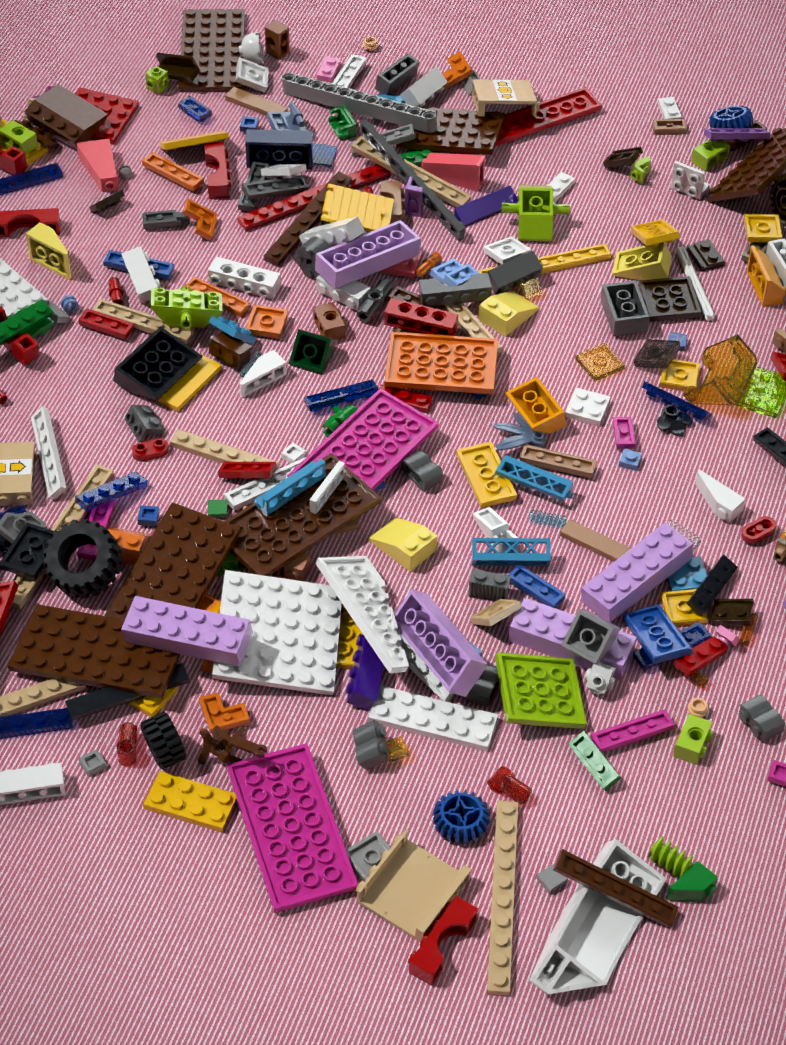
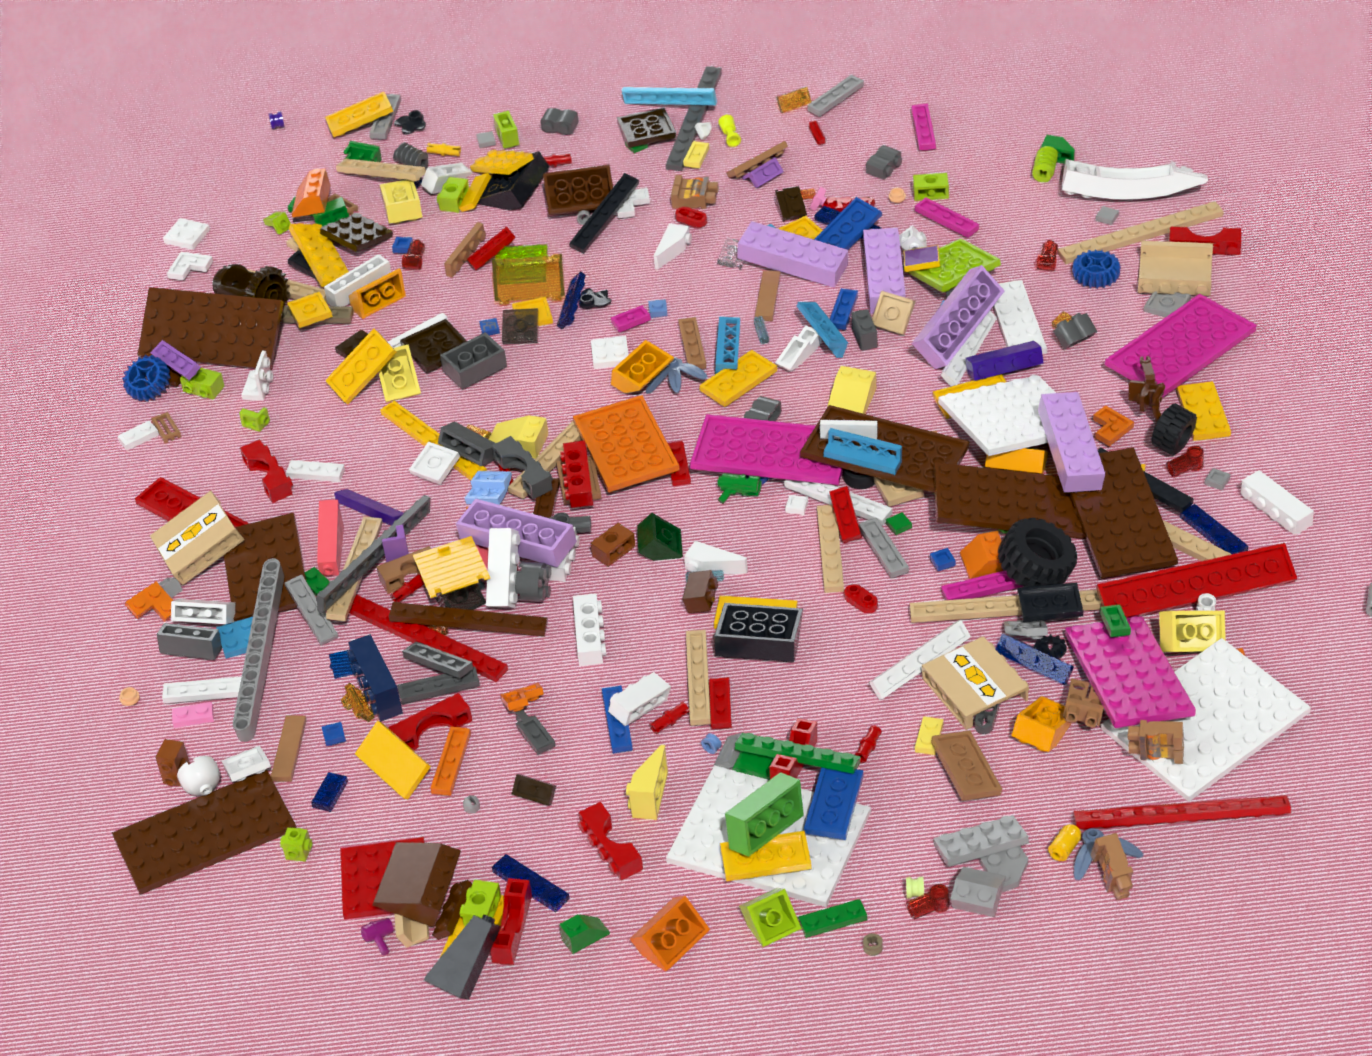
camera: 110 degrees left, 5 degrees down
(99, 162) = (474, 824): coral slope -> none
(111, 491) = (937, 589): clear blue plate -> none
(143, 421) = (833, 615): dark grey bracket -> none
(178, 66) = (272, 830): dark brown panel -> none
(185, 306) = (665, 637): lime slope -> none
(193, 484) = (883, 547): none -> light grey plate
(229, 301) = (623, 644): orange tile -> none
(233, 329) = (675, 595): dark azure plate -> none
(267, 321) = (639, 589): orange plate -> none
(283, 170) = (408, 660): white plate -> none
(287, 120) = (317, 697): sand blue plate -> none
(340, 395) = (705, 498): clear blue plate -> none
(343, 123) = (291, 659): green hinge -> none
(365, 599) = (940, 381): white wing -> none
(535, 212) = (364, 458): lime slope -> none
(550, 162) = (258, 458): none -> red arch
(565, 669) = (921, 258): none -> tile
(590, 636) = (889, 239): light grey slope -> none
(594, 760) = (990, 224): plate -> none
(600, 362) = (546, 363): clear yellow tile -> none
(616, 888) = (1100, 168): reddish brown tile -> none
(623, 157) = (243, 430): dark brown plate -> none
(712, 585) = (778, 218): black plate -> none

